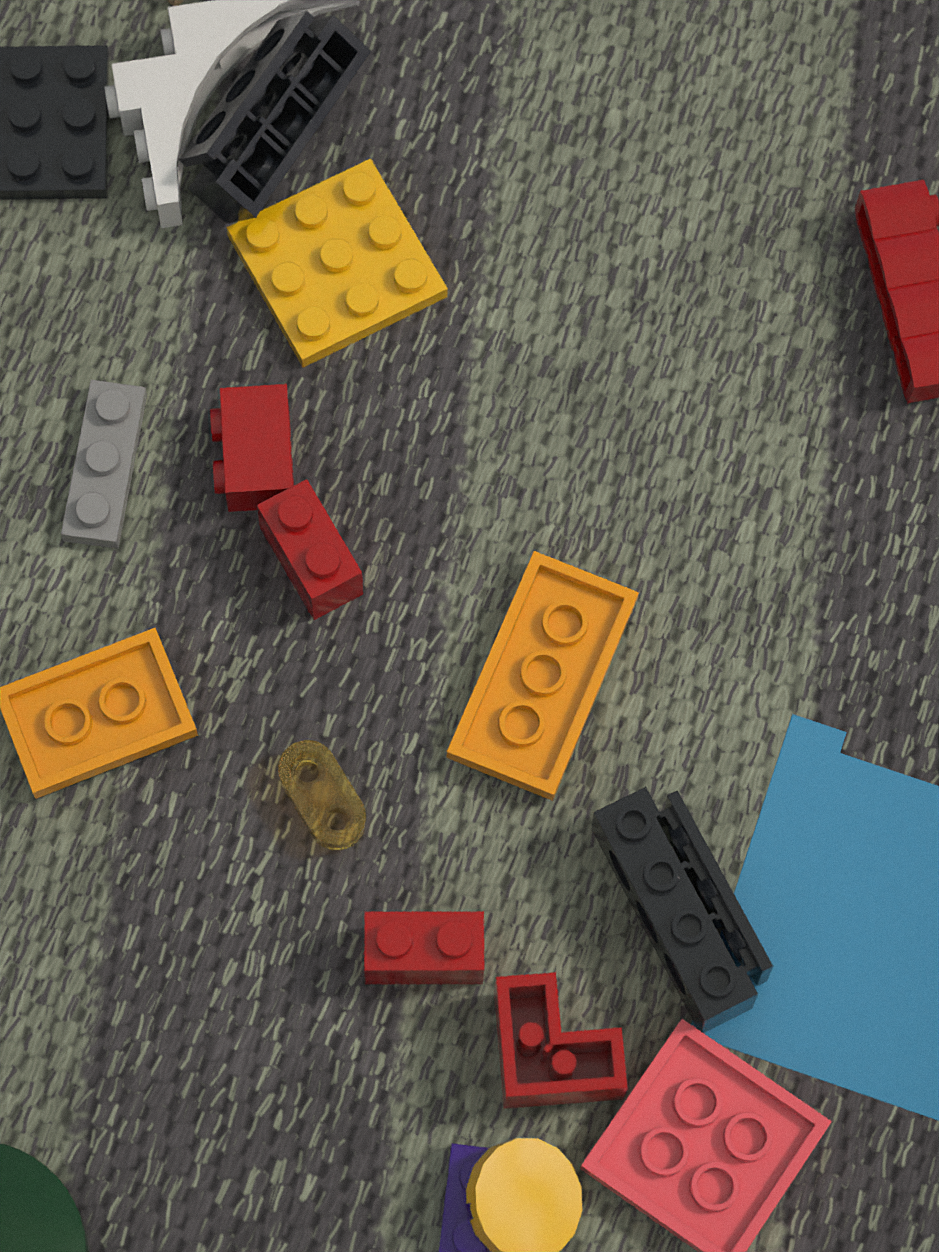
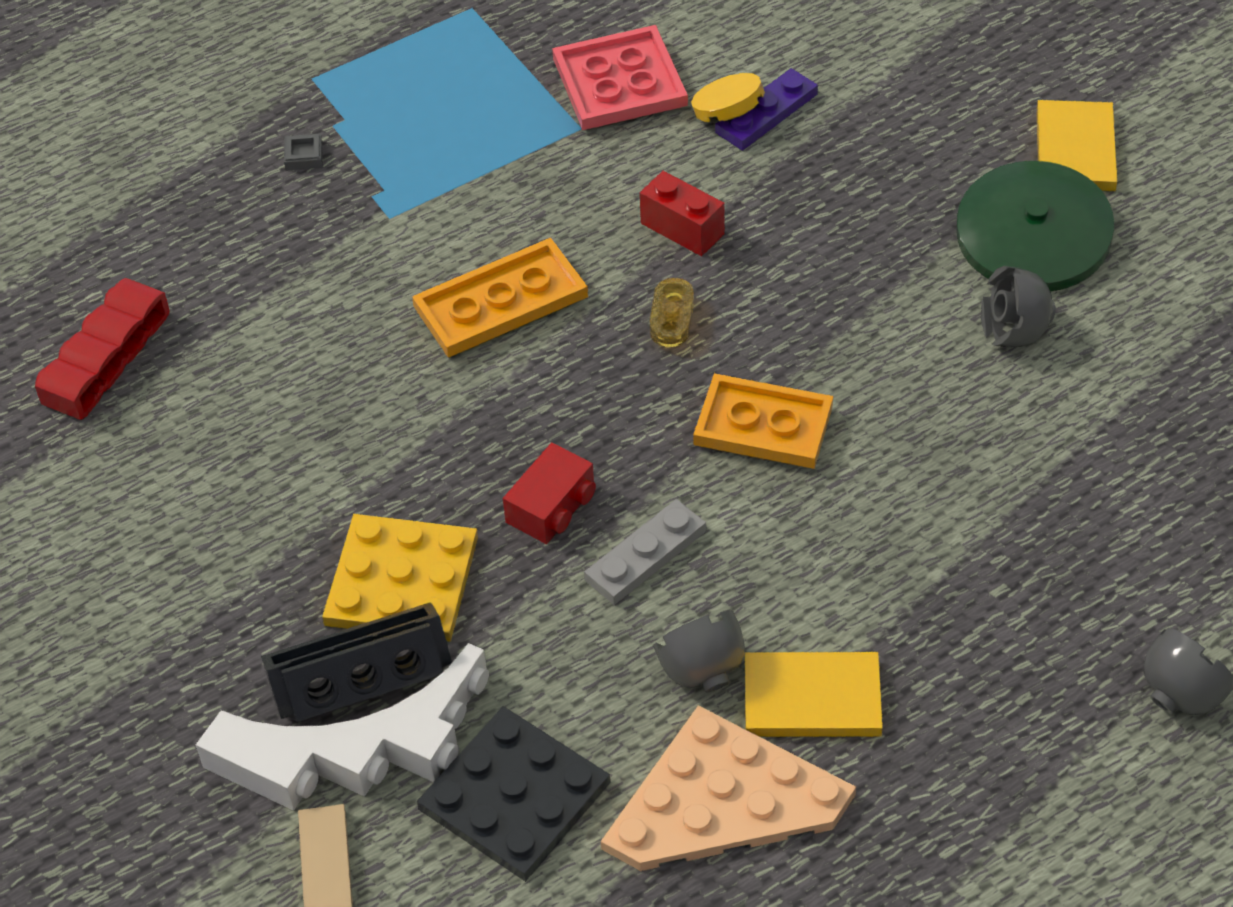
camera: 135 degrees left, 20 degrees down
(310, 549) = (570, 412): red brick -> none
(550, 1065) = (659, 134): red brick -> none
(672, 911) = (533, 158): black brick -> none

